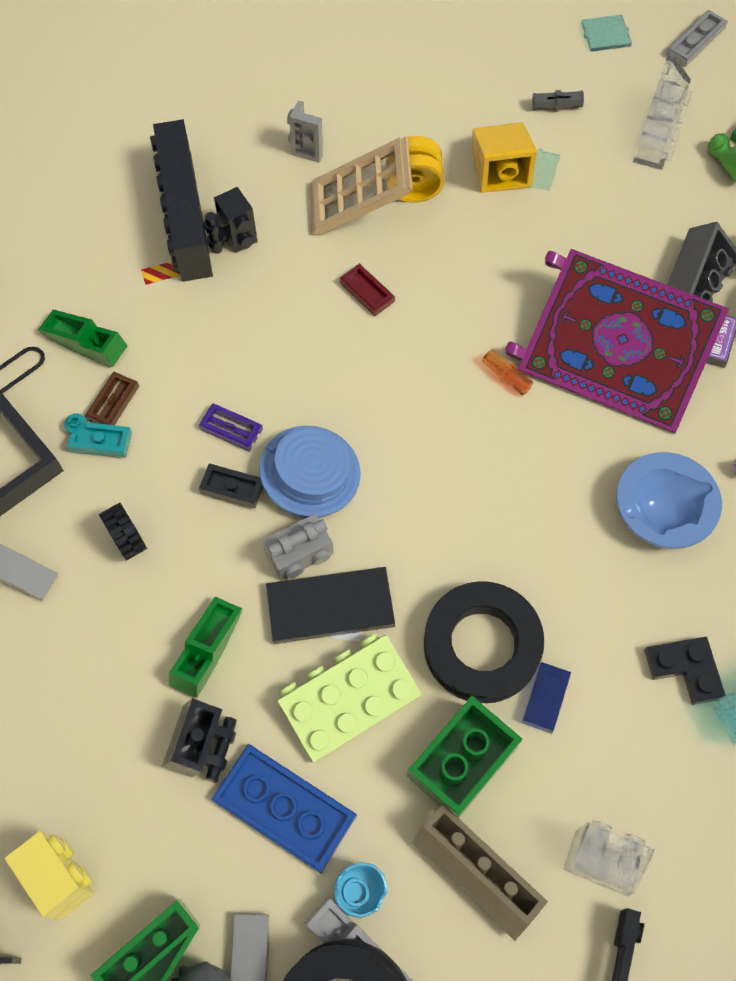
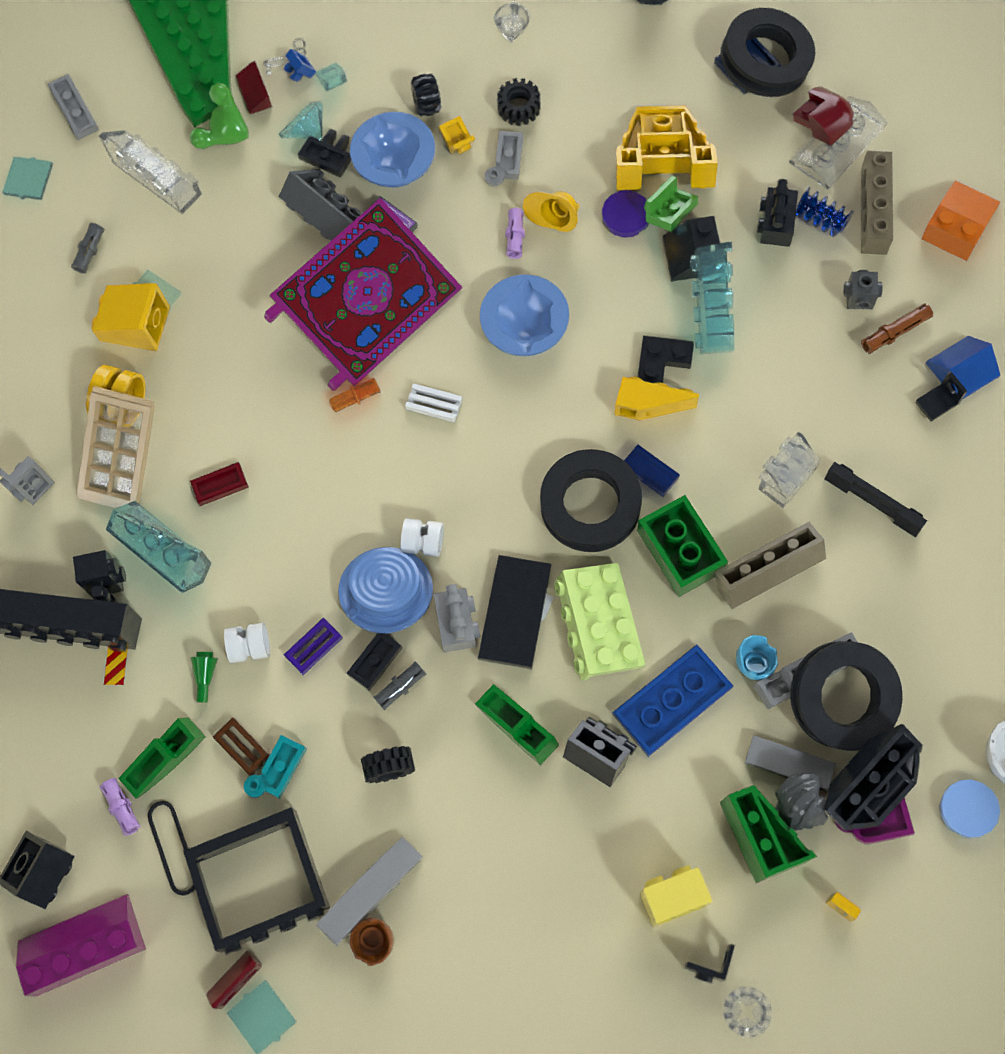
camera: 65 degrees left, 5 degrees up
(27, 320) = (120, 806): none -> lavender pin
(177, 340) = (203, 669): none -> green cone
(212, 365) = (247, 642): none -> white wheel
(213, 518) = (399, 685): none -> dark grey pin
(281, 259) = (158, 546): none -> clear light blue wedge
(375, 484) = (422, 537): none -> white wheel
(530, 427) = (413, 396): none -> white tile
(626, 662) = (648, 400): none -> yellow slope

